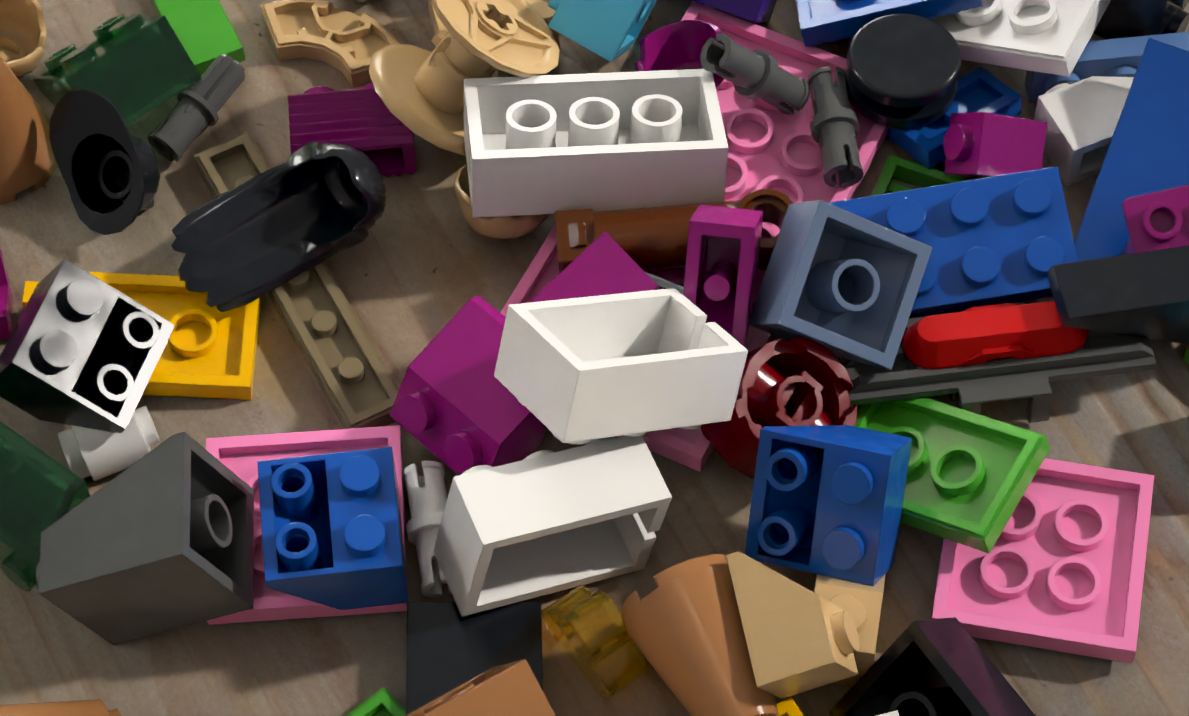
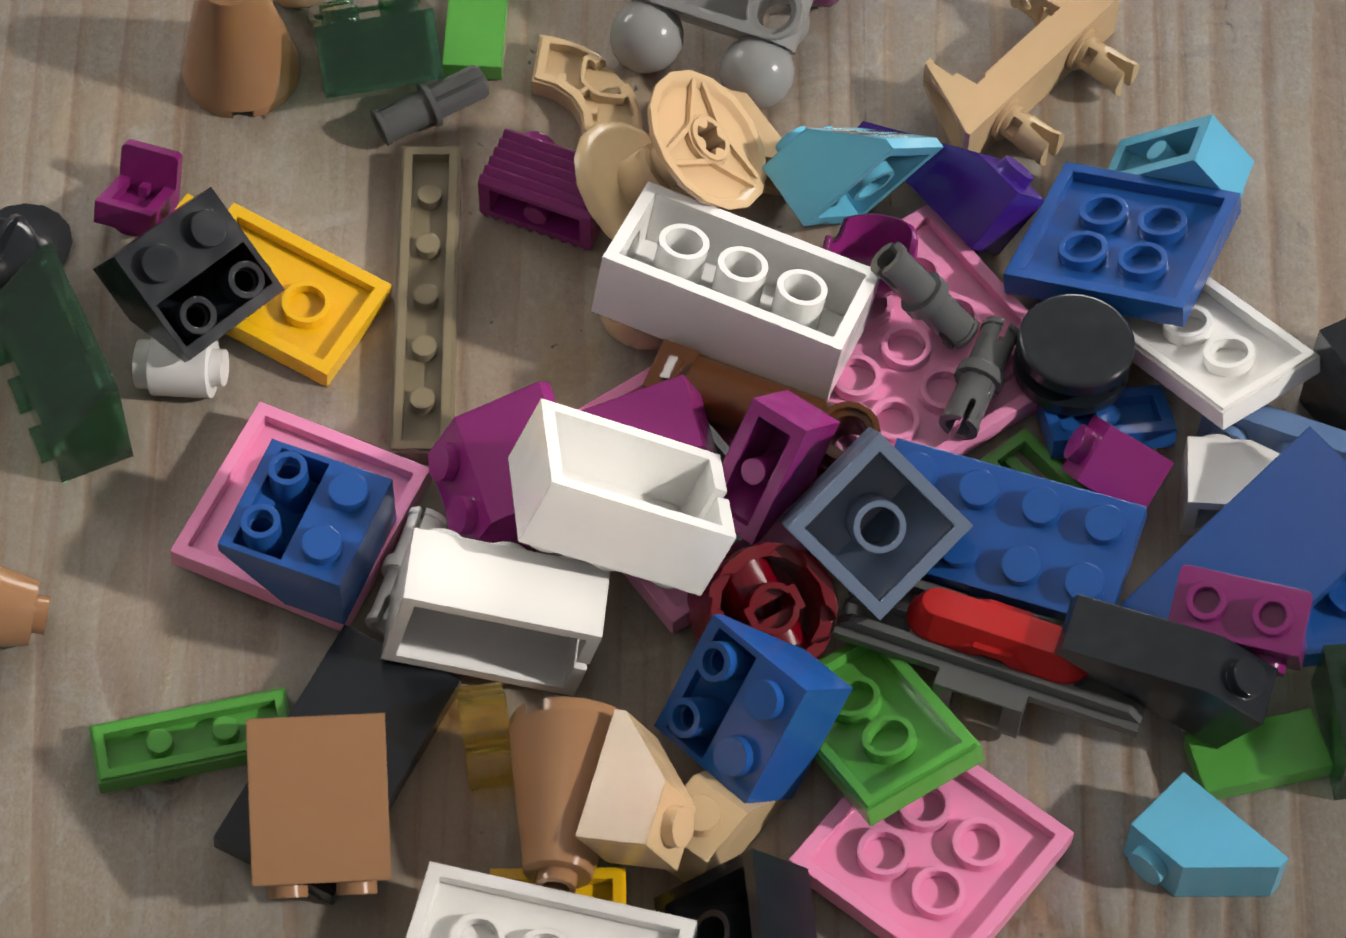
camera: 25 degrees right, 0 degrees up
(101, 162) = (314, 122): black piece -> none
(154, 546) = (150, 471): dark grey slope -> none
(279, 224) = (426, 241): black hair -> none

